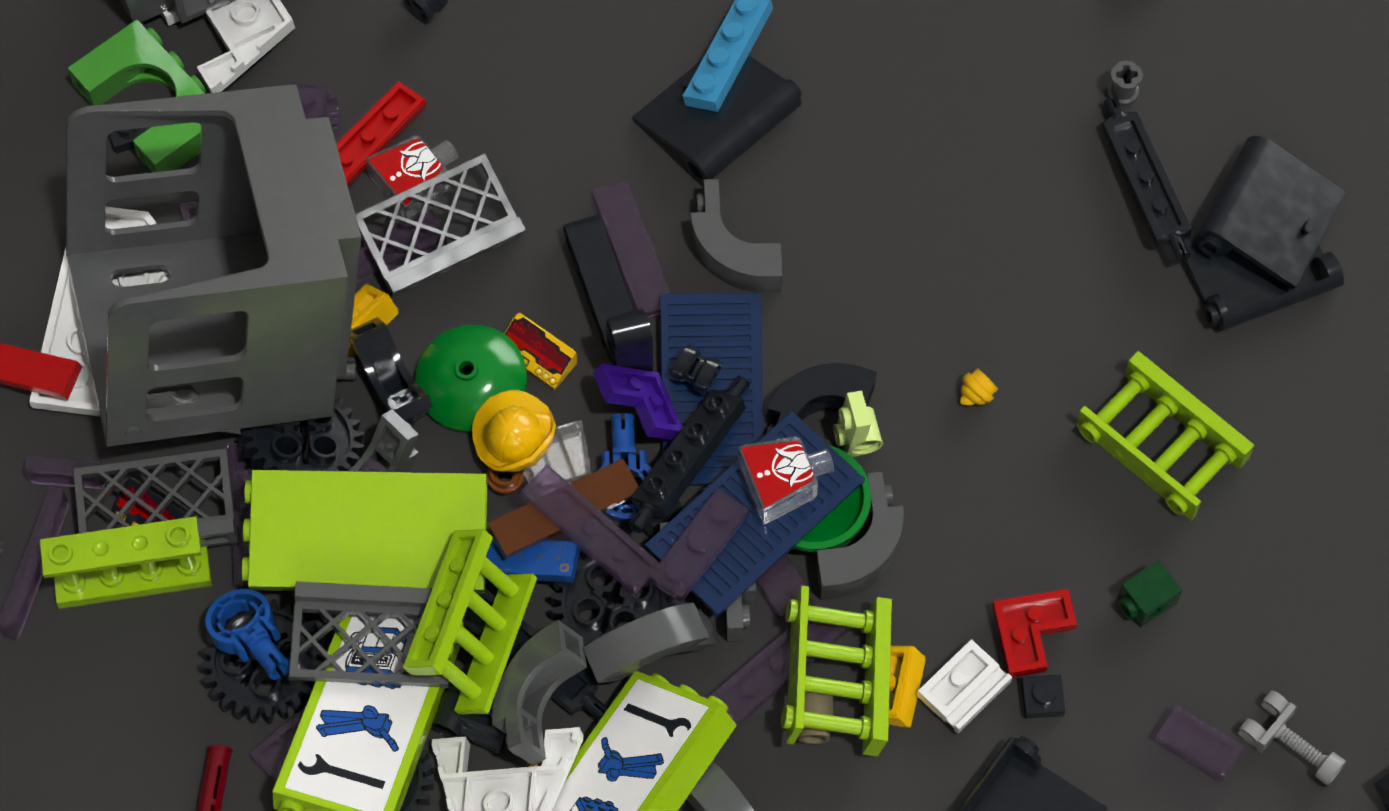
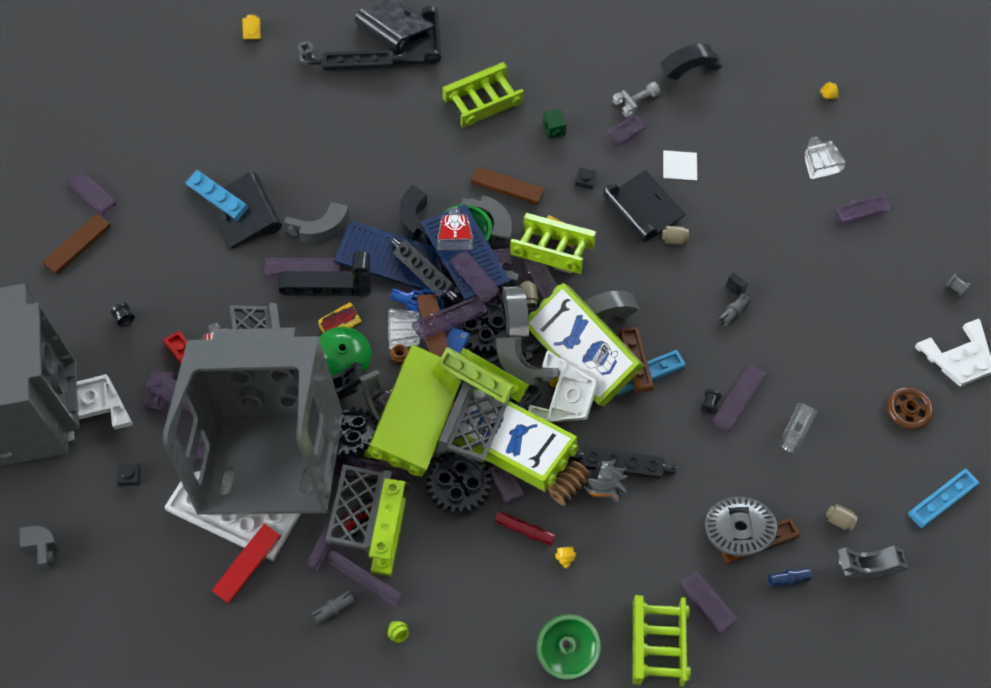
camera: 75 degrees left, 5 degrees down
(133, 58) = (90, 453): bright green arch -> none
(253, 636) = (454, 479): blue pin -> none
(512, 431) = (383, 338): yellow hat -> none
(645, 393) = (381, 282): dark purple plate -> none
(696, 369) = (380, 255): black wheel -> none
(711, 663) = (531, 294): none -> dark tan brick
(857, 427) = (435, 201): yellowish green plate -> none
(962, 552) = (507, 185): none -> reddish brown tile
(964, 686) = (572, 203): white plate -> none
(977, 389) = (432, 154): yellow plate -> none
(1024, 620) = (552, 174): red plate -> none

